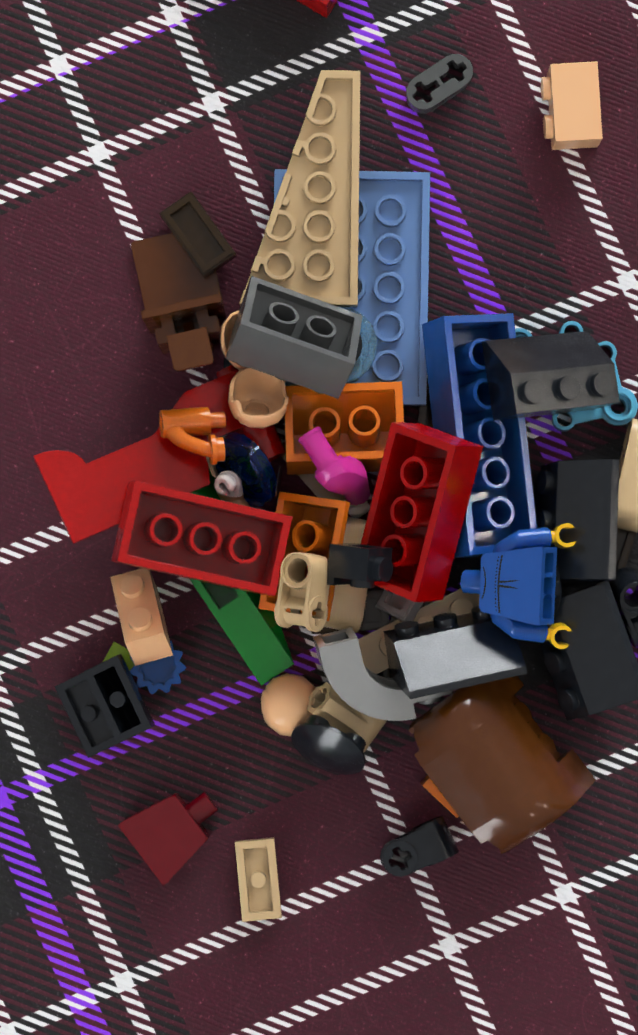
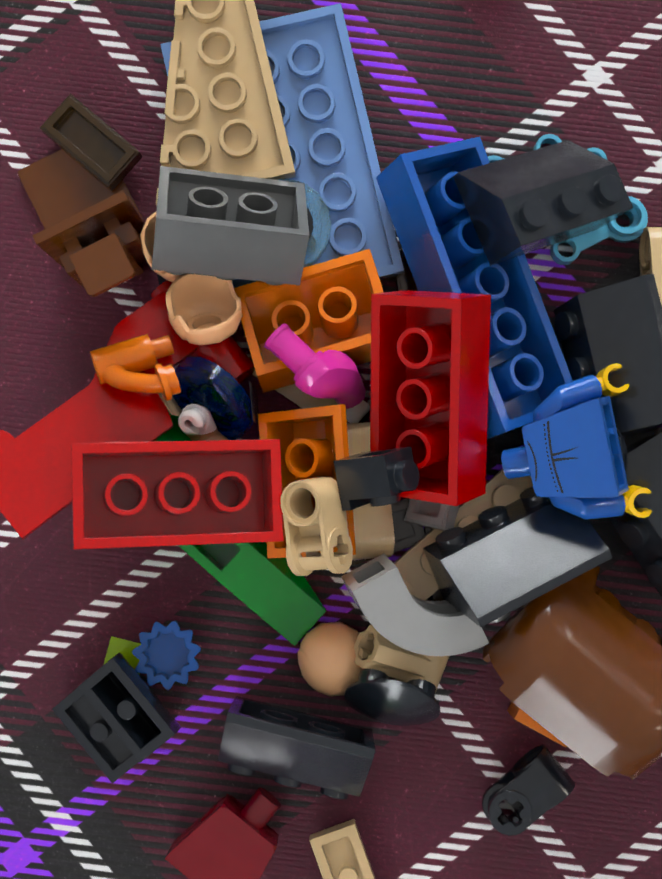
camera: 15 degrees left, 0 degrees up
(141, 616) = (131, 603): light nougat brick -> none
(242, 766) = (296, 748): none -> black slope

